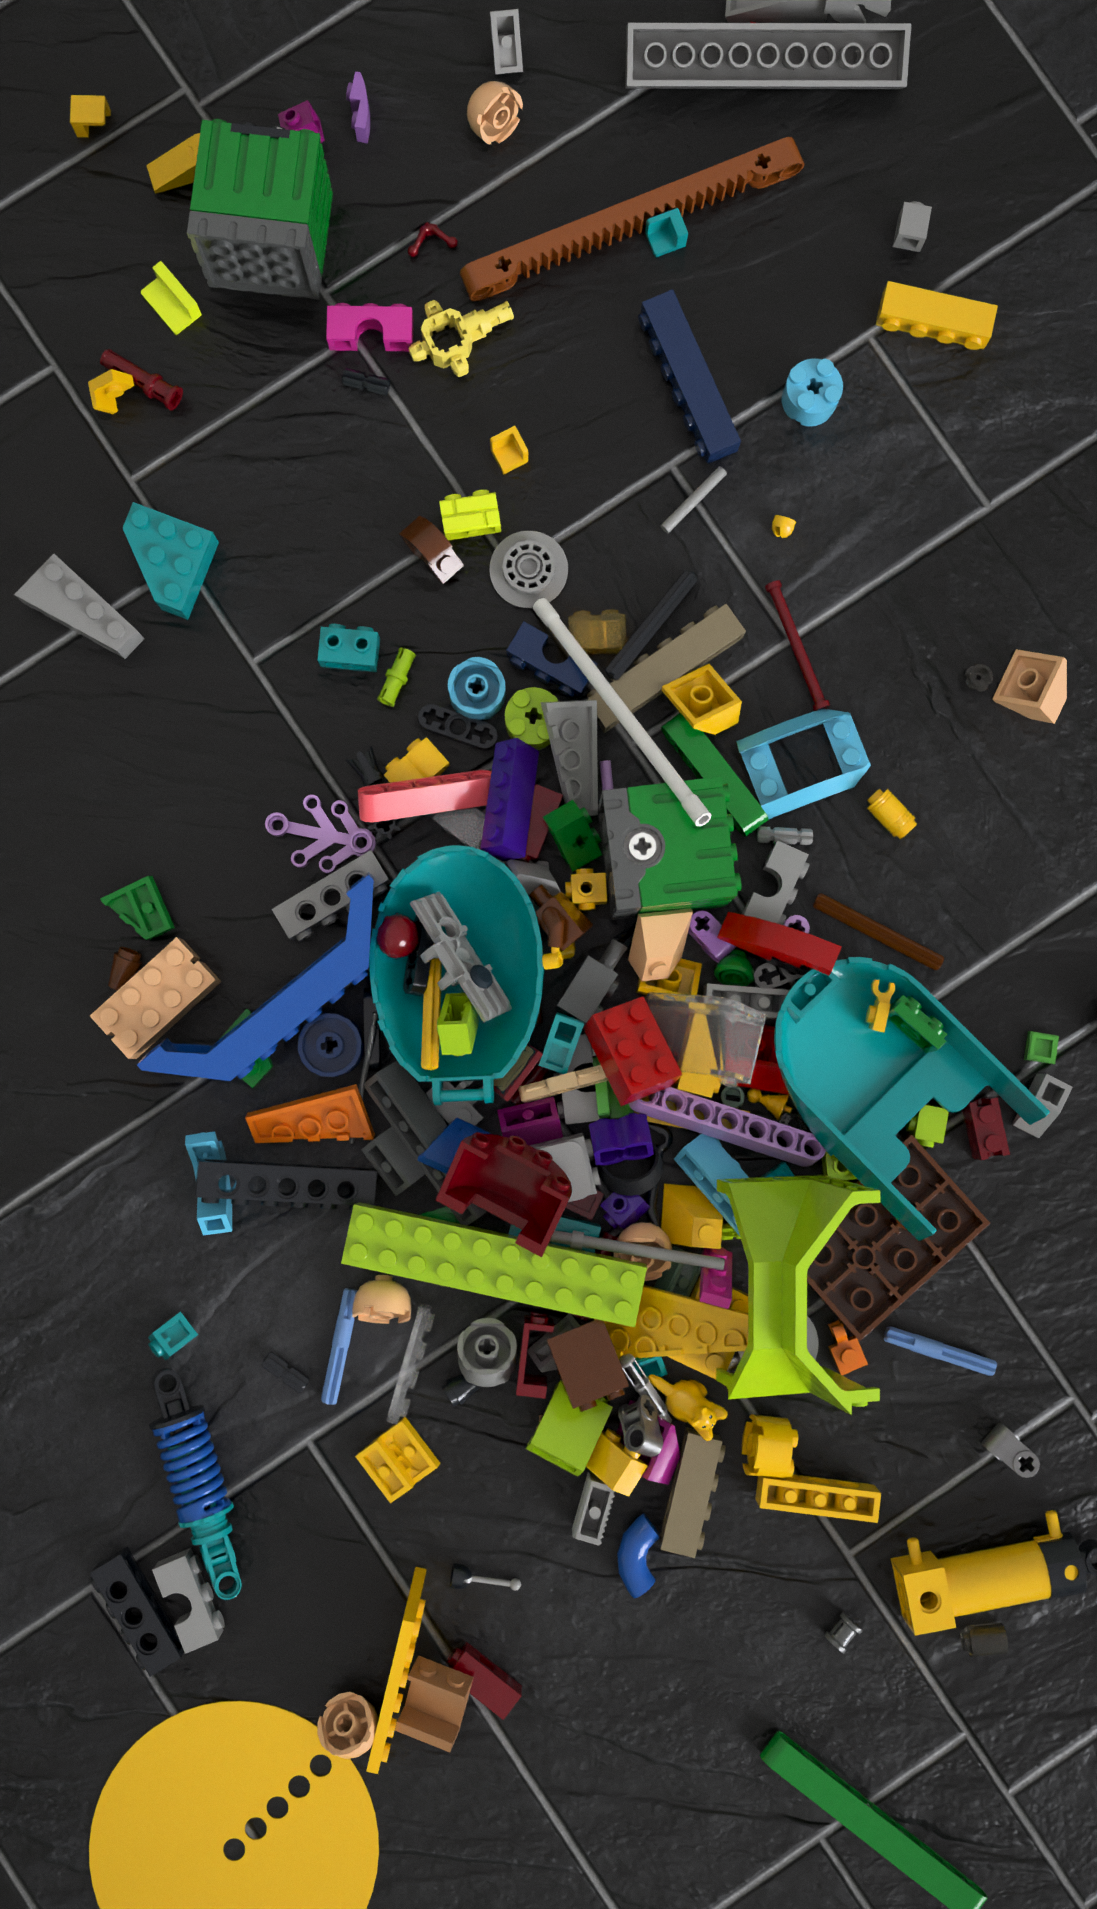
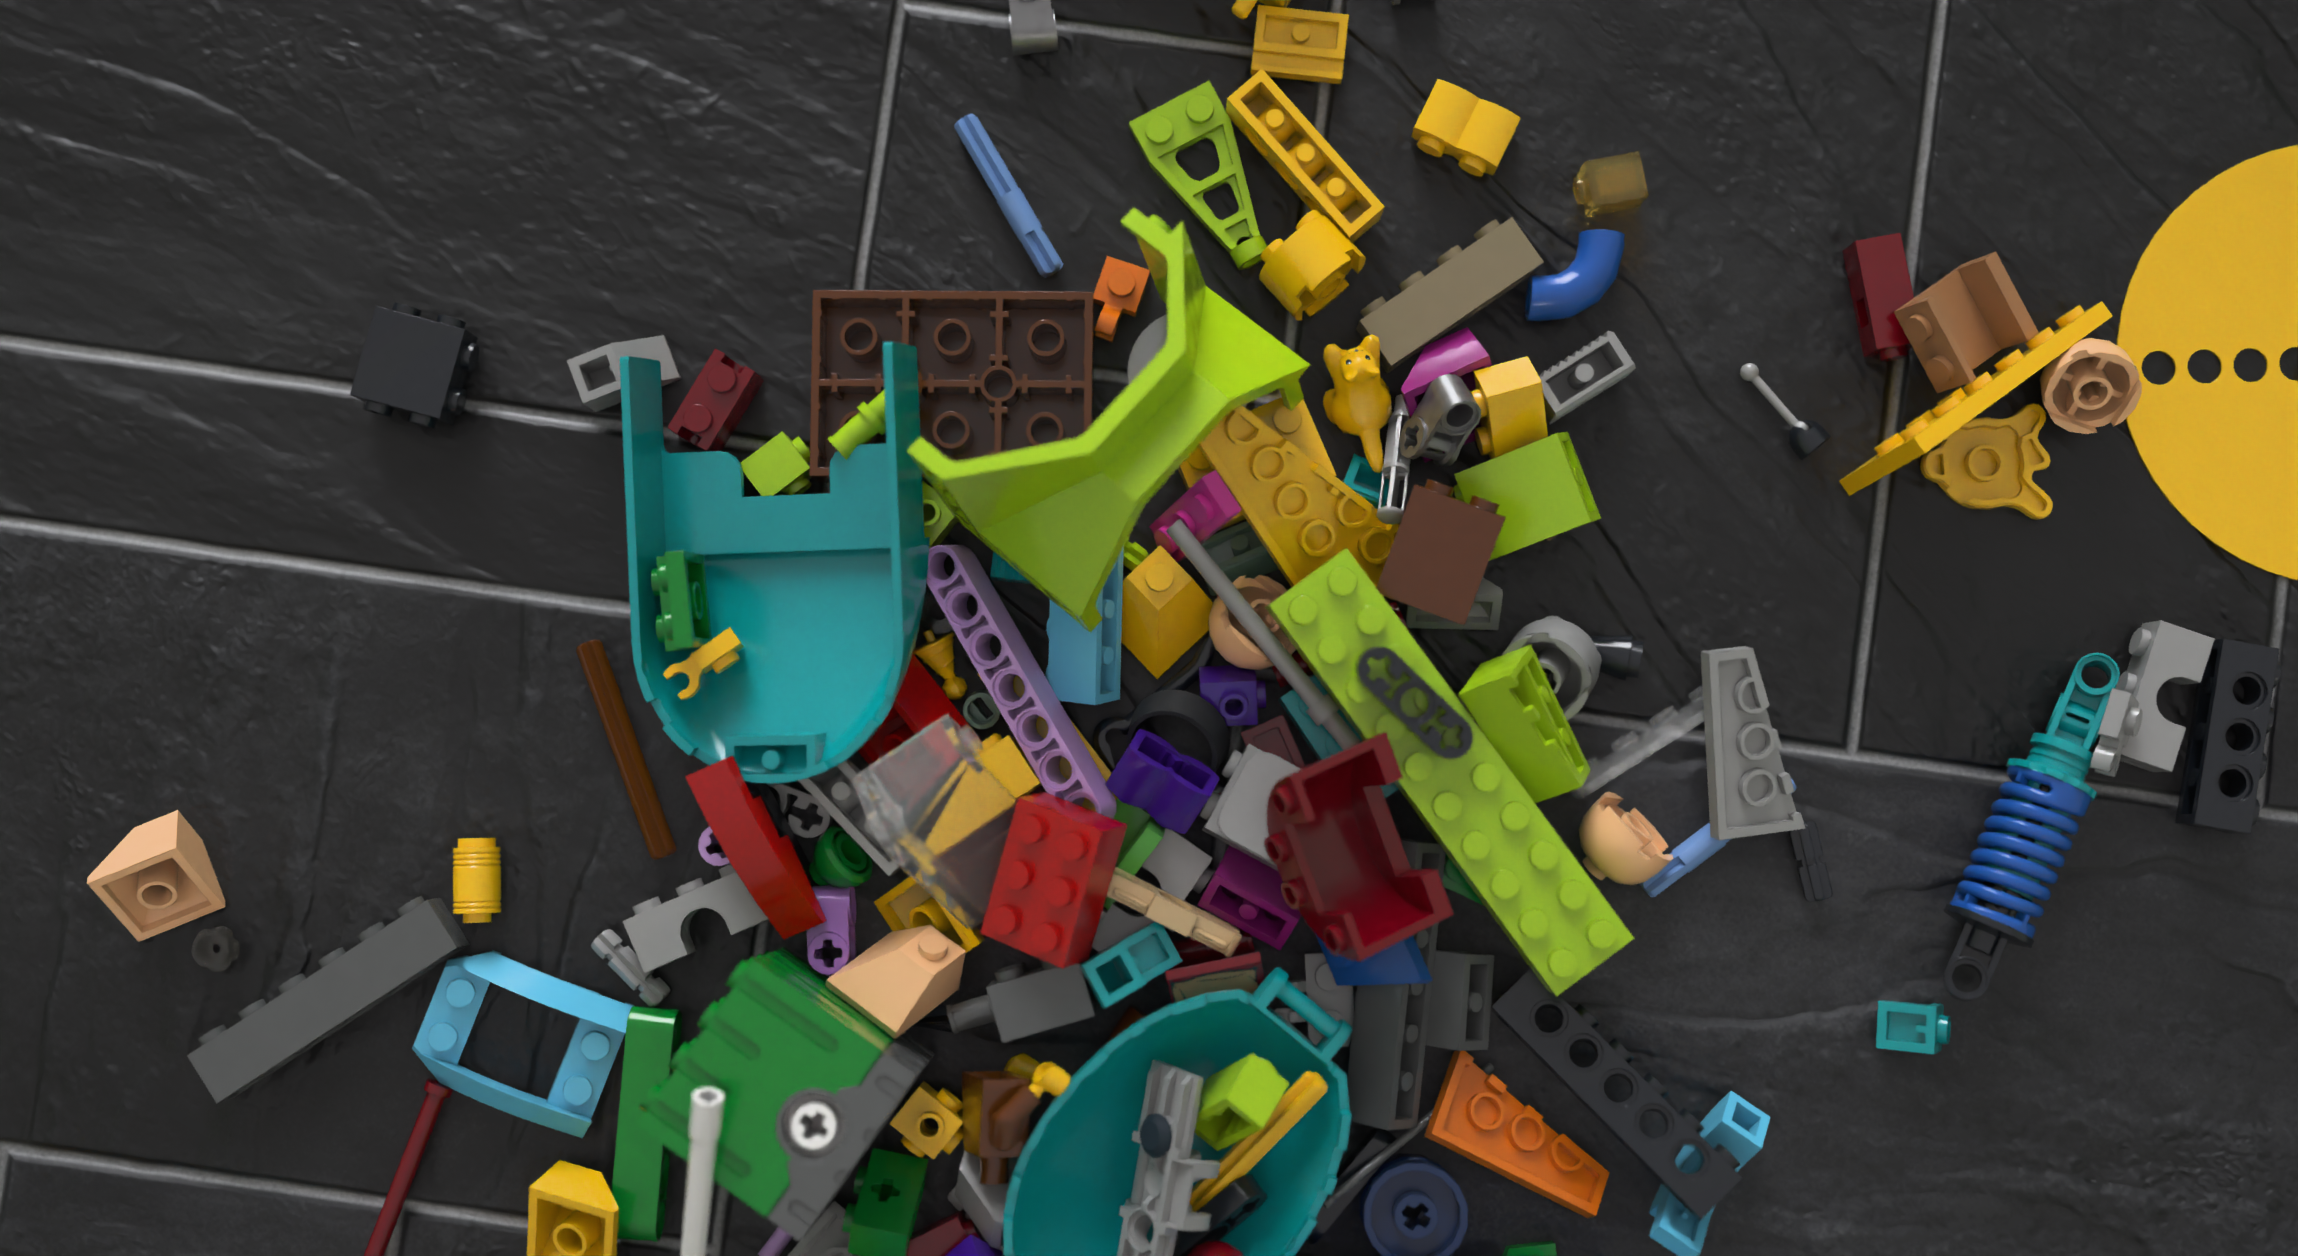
camera: 125 degrees left, 0 degrees up
(197, 1570) = (2119, 721): none -> light grey plate
(352, 1387) = (1744, 767): none -> light grey wing
(362, 1645) = (1993, 463): none -> yellow tile
(397, 1460) = (1775, 626): yellow slope -> none
(477, 1318) = (1526, 724): none -> lime wedge
(517, 1288) = (1431, 736): none -> black beam
(529, 1384) = (1534, 593): dark red panel -> none
(661, 1617) = (1611, 184): none -> clear yellow brick
(754, 1581) = (1464, 128): none -> yellow brick
(869, 1551) = (1300, 44): none -> yellow plate
(890, 1458) = (1181, 124): none -> lime plate
(907, 701) = (327, 999): none -> dark grey brick
(908, 1180) = (862, 427): none -> lime pin
(1041, 1047) = (561, 436): bright green tile -> none

